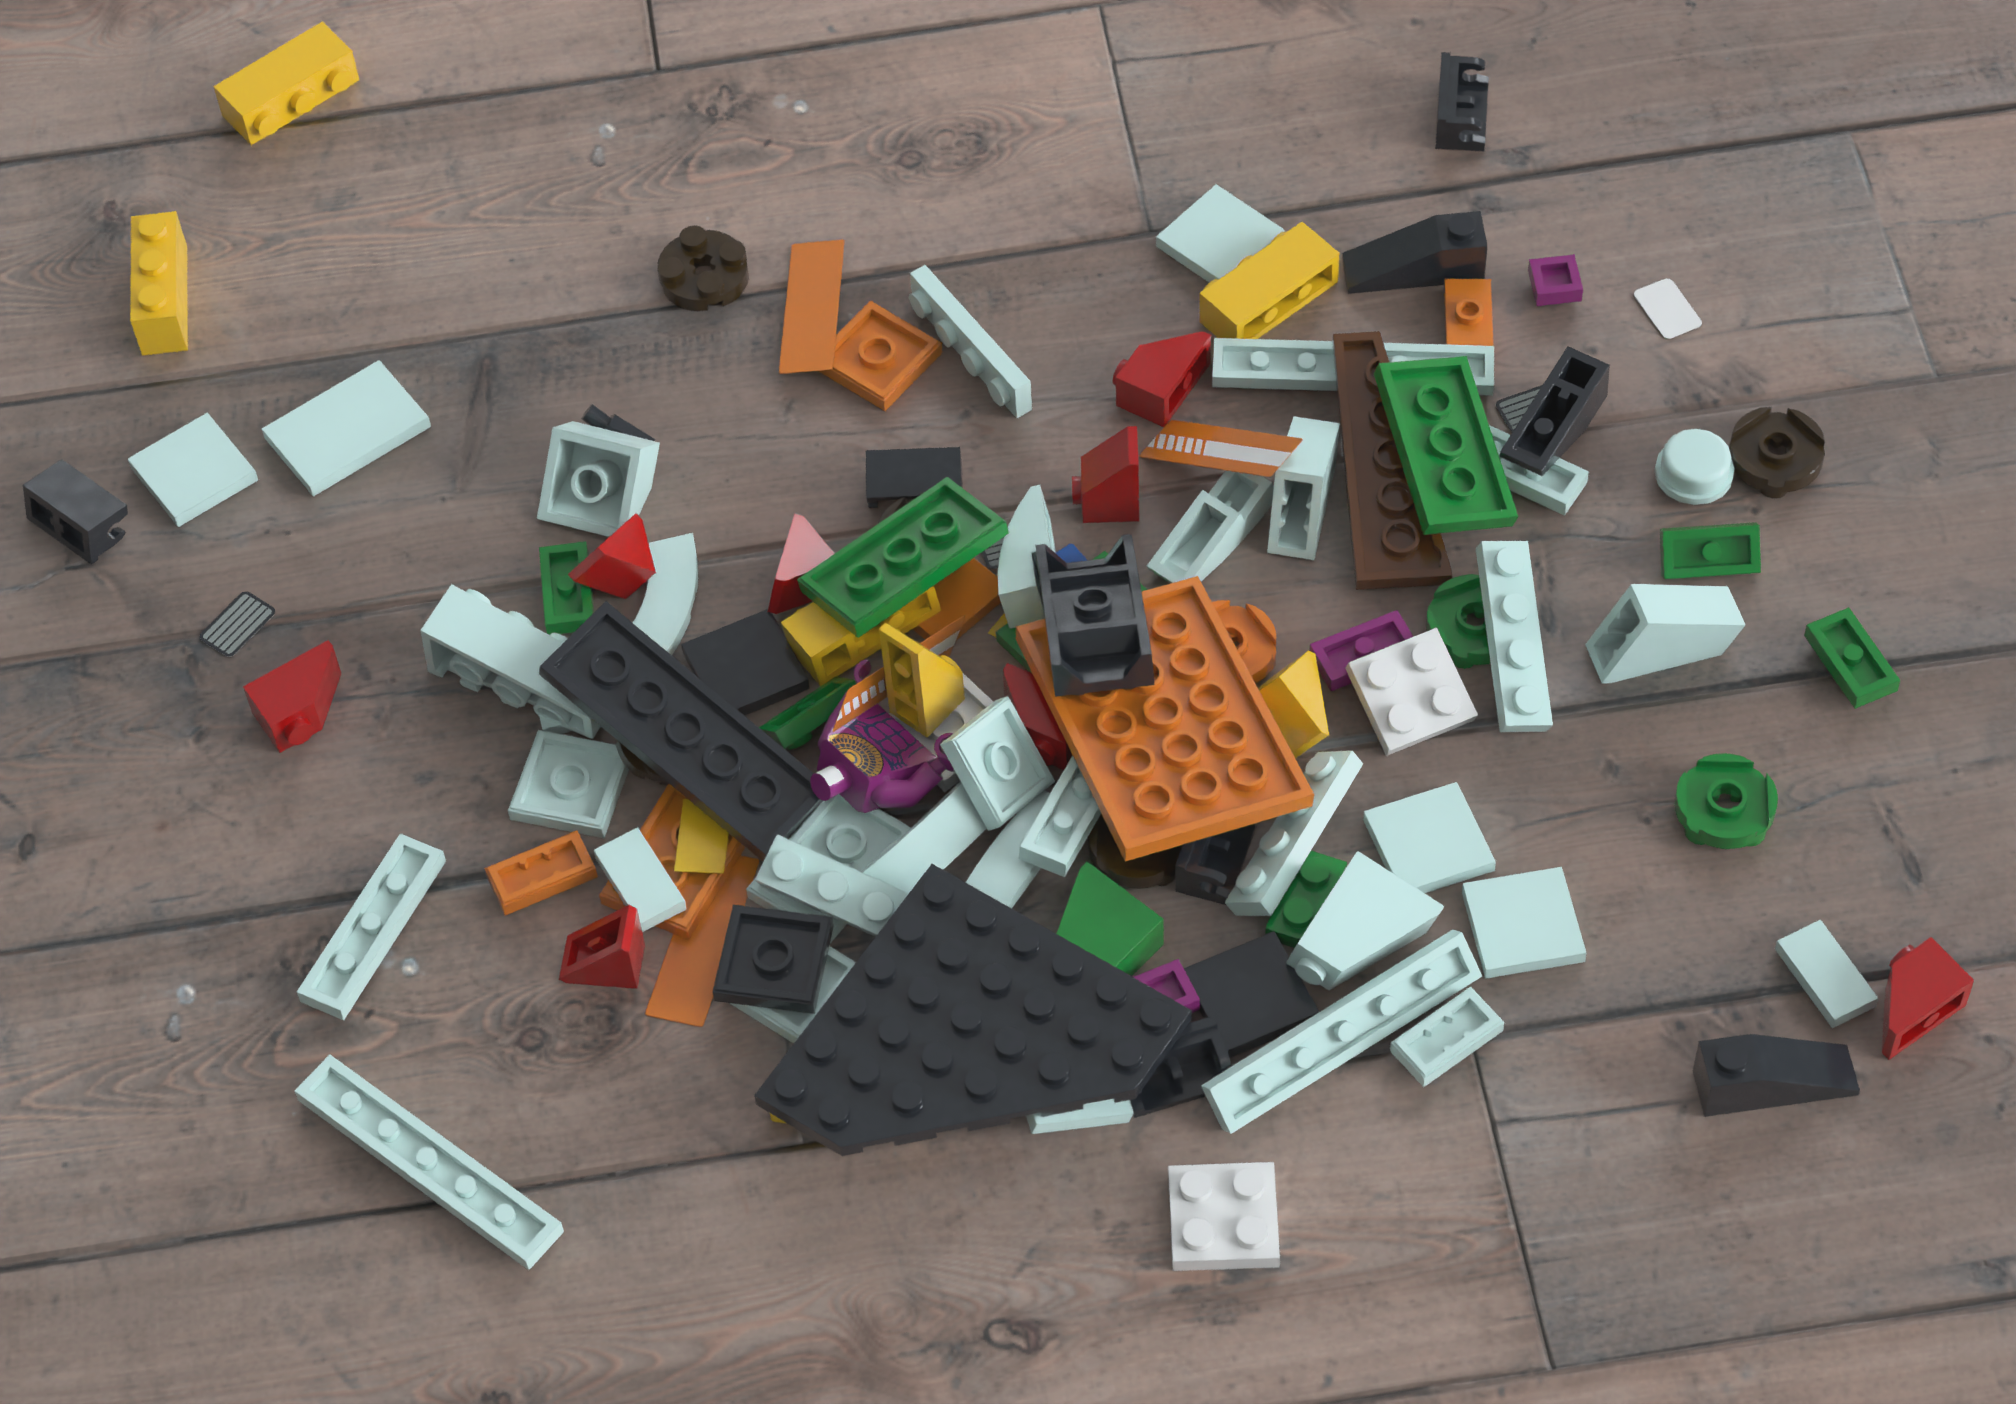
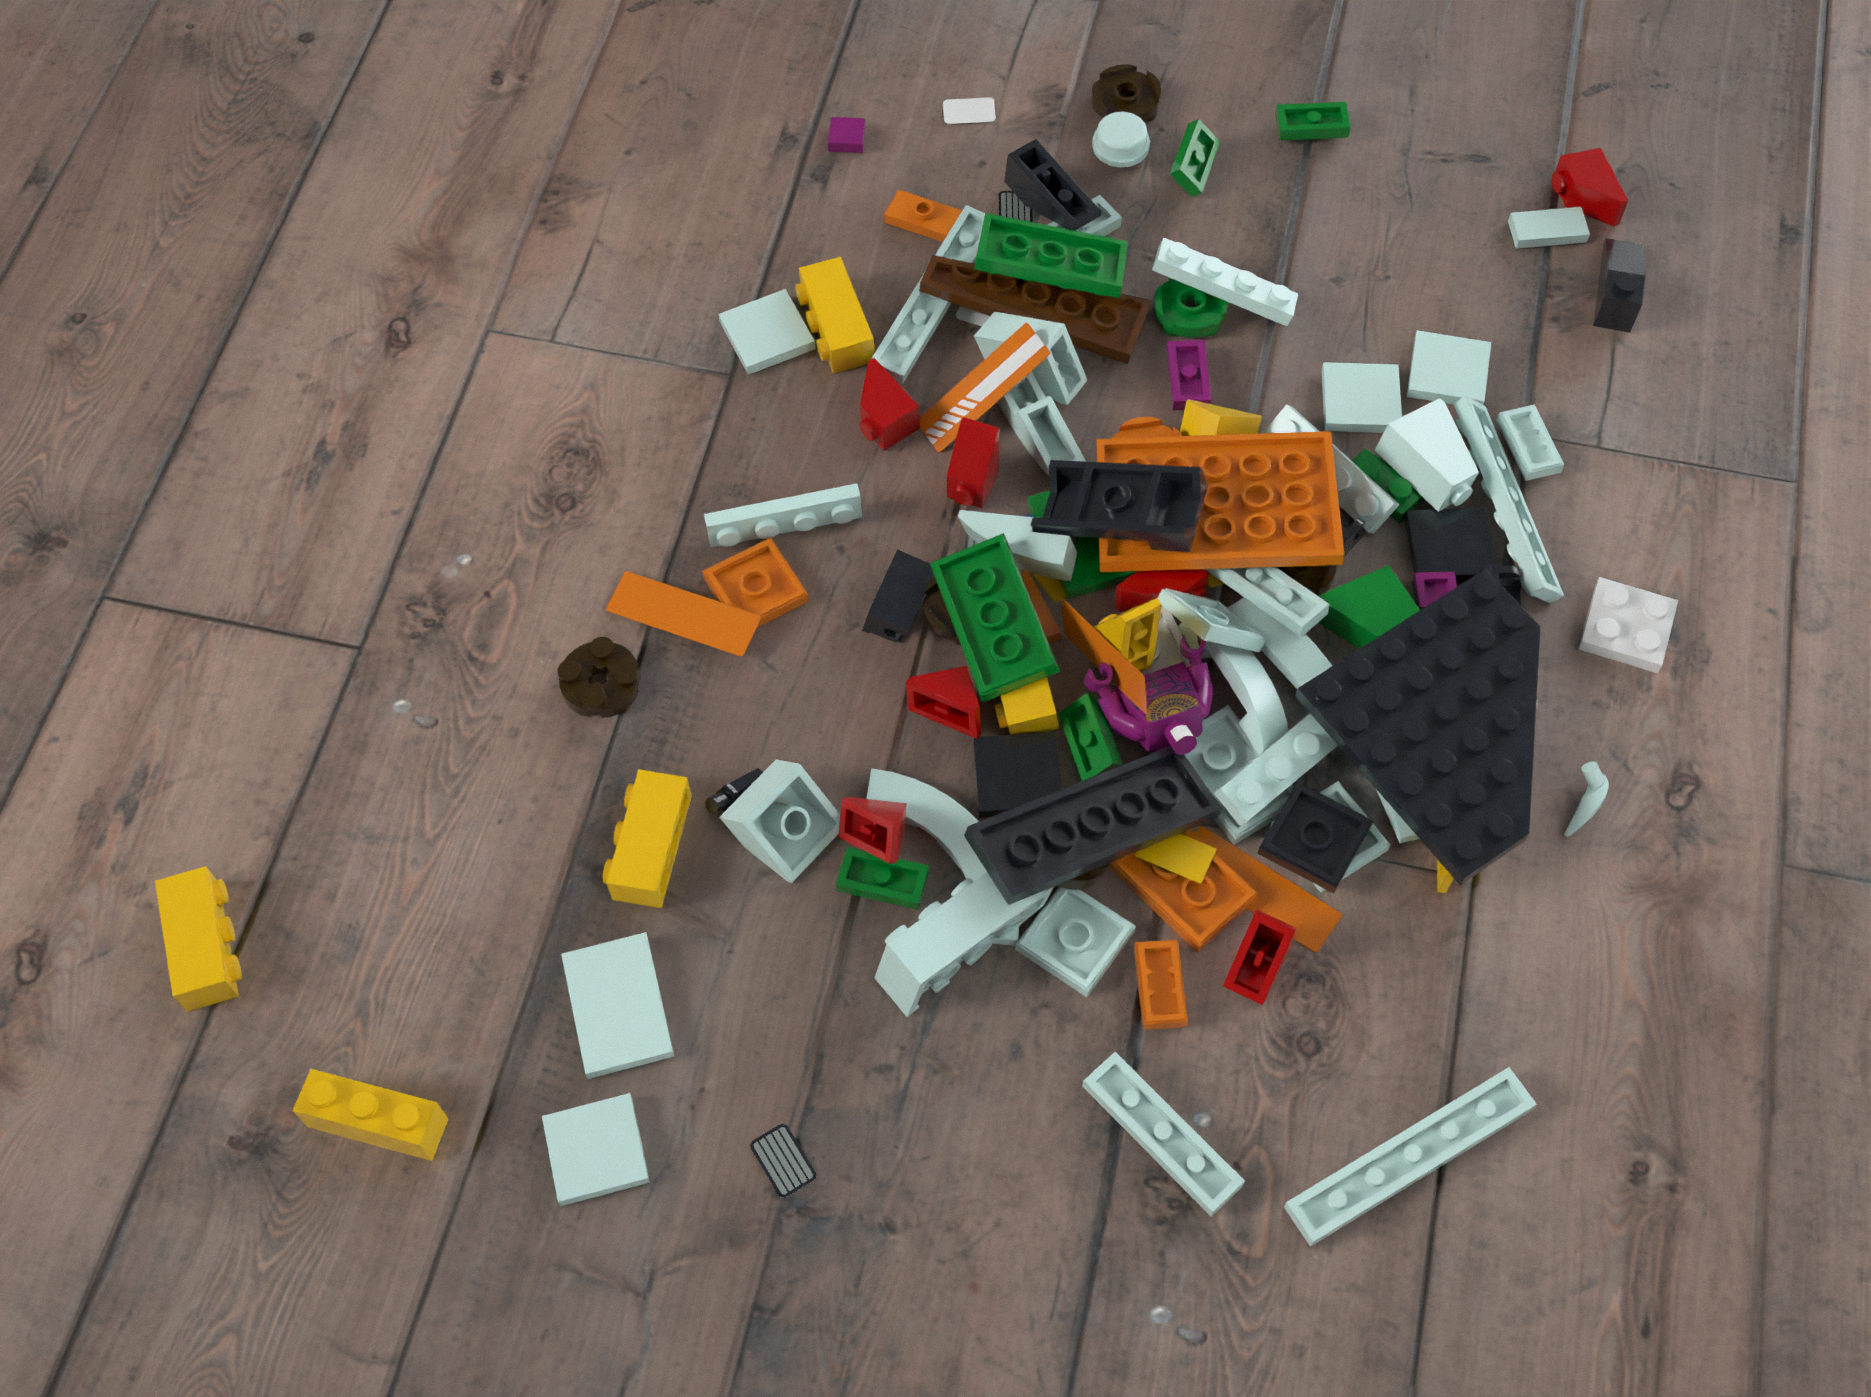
camera: 70 degrees left, 5 degrees up
(74, 510) = (595, 1265): black hinge -> none
(296, 696) = (903, 1128): red slope -> none
(530, 377) = (647, 838): none -> yellow brick
(640, 878) = (1204, 908): light aqua tile -> none
(950, 1233) = (1592, 799): none -> light aqua bar
(1411, 691) = (1239, 359): white plate -> none
(1420, 255) = (858, 216): black slope -> none
(1461, 104) = (728, 153): black hinge -> none
(1552, 203) = (846, 134): none -> magenta tile
(1555, 280) = (919, 155): magenta plate -> none
(1663, 629) = (1254, 206): light aqua slope -> none
(1720, 826) = (1394, 242): green plate -> none

